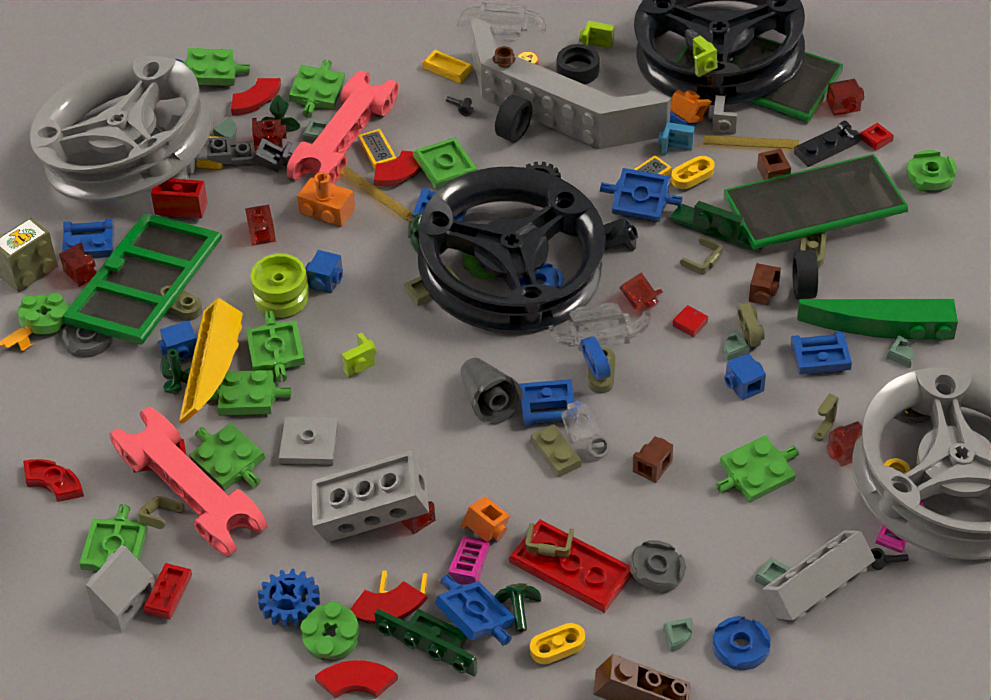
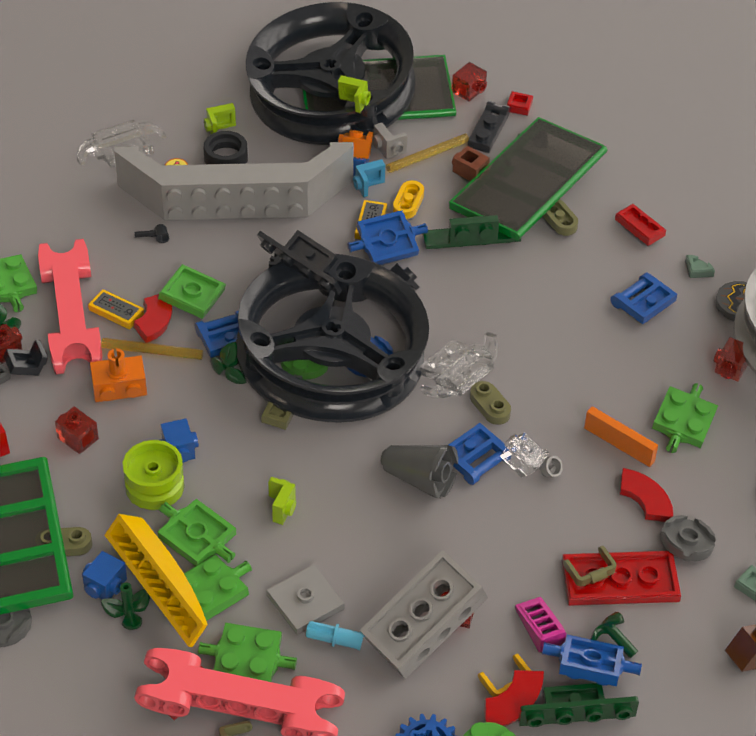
camera: 40 degrees left, 0 degrees up
(300, 476) = (334, 635): none -> medium azure axle
(313, 130) = (43, 319): sand green tile -> none
(447, 66) = (108, 205): yellow tile -> none
(486, 519) = (525, 579): orange brick -> none
(504, 57) = (181, 169): reddish brown plate -> none
(513, 118) = (222, 222): black tyre -> none
(532, 171) = (307, 255): none -> black bracket
(555, 642) = (673, 649): yellow plate -> none
(556, 450) = (518, 490): olive plate -> none
(595, 358) = (489, 393): blue beam -> none
(640, 293) = (464, 321): clear red bracket -> none
(653, 459) = (604, 453): copper brick -> none
(660, 511) = (647, 494): none -> red tile
(681, 453) = (621, 436): none -> orange tile
(690, 321) = (521, 324): red tile -> none
(710, 261) = (489, 265): olive piece -> none
(735, 346) = (573, 327): sand green tile -> none
(745, 376) = (608, 347): blue brick -> none
(747, 320) = (572, 303): olive plate -> none
(764, 283) = (552, 264): copper brick -> none
(805, 274) = (570, 236): black tyre -> none
(829, 410) = (702, 339): olive piece -> none
(880, 283) = (640, 224): none -> red plate
(883, 317) = (664, 246): green slope -> none
(924, 180) = (578, 111): bright green plate -> none

